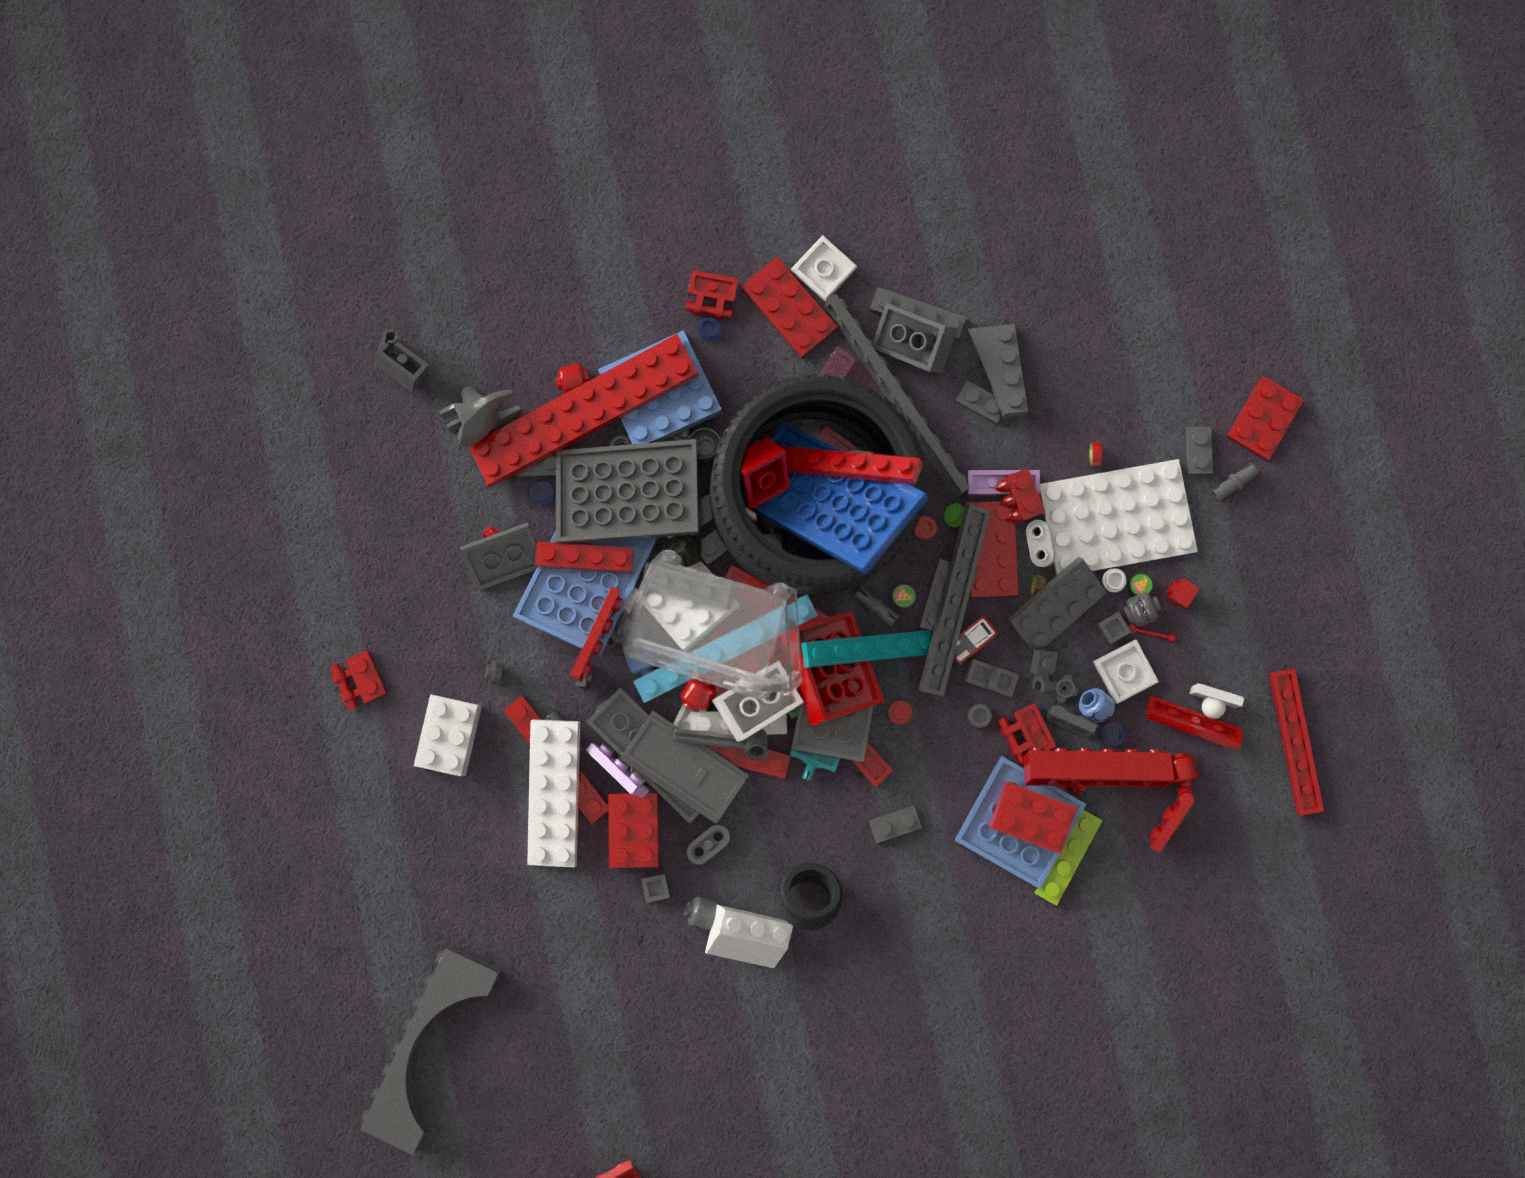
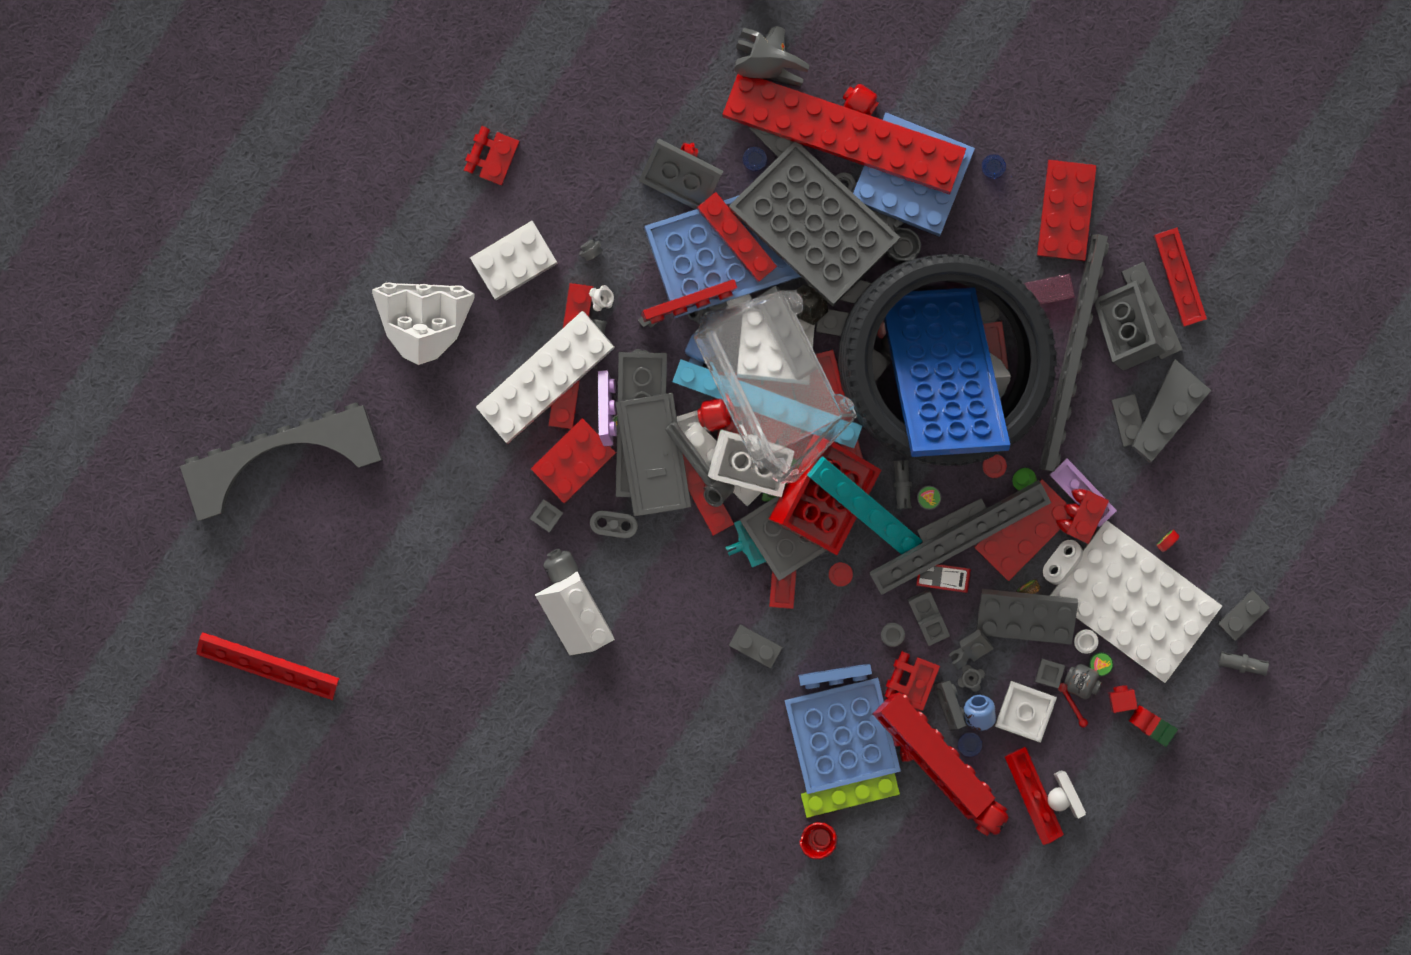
camera: 50 degrees right, 5 degrees up
(425, 843) = (422, 317): none -> white brick
(539, 693) = (606, 298): none -> white plate
(711, 287) = (1028, 140): red plate -> none
(764, 472) = (920, 313): red slope -> none
(815, 874) = (663, 619): black tyre -> none
(824, 268) = (1120, 208): white plate -> none
(851, 465) = (973, 356): red plate -> none
(912, 271) = (1180, 277): none -> red plate
(971, 786) = (835, 676): none -> medium blue plate
(1032, 817) = (853, 740): red brick -> none
(1082, 913) = (818, 840): none -> red hair
(1172, 818) = (948, 842): red plate -> none
(1222, 588) = (1153, 725): none -> leg
(1265, 418) = (1314, 642): red plate -> none
(1296, 742) = (1090, 882): red plate -> none

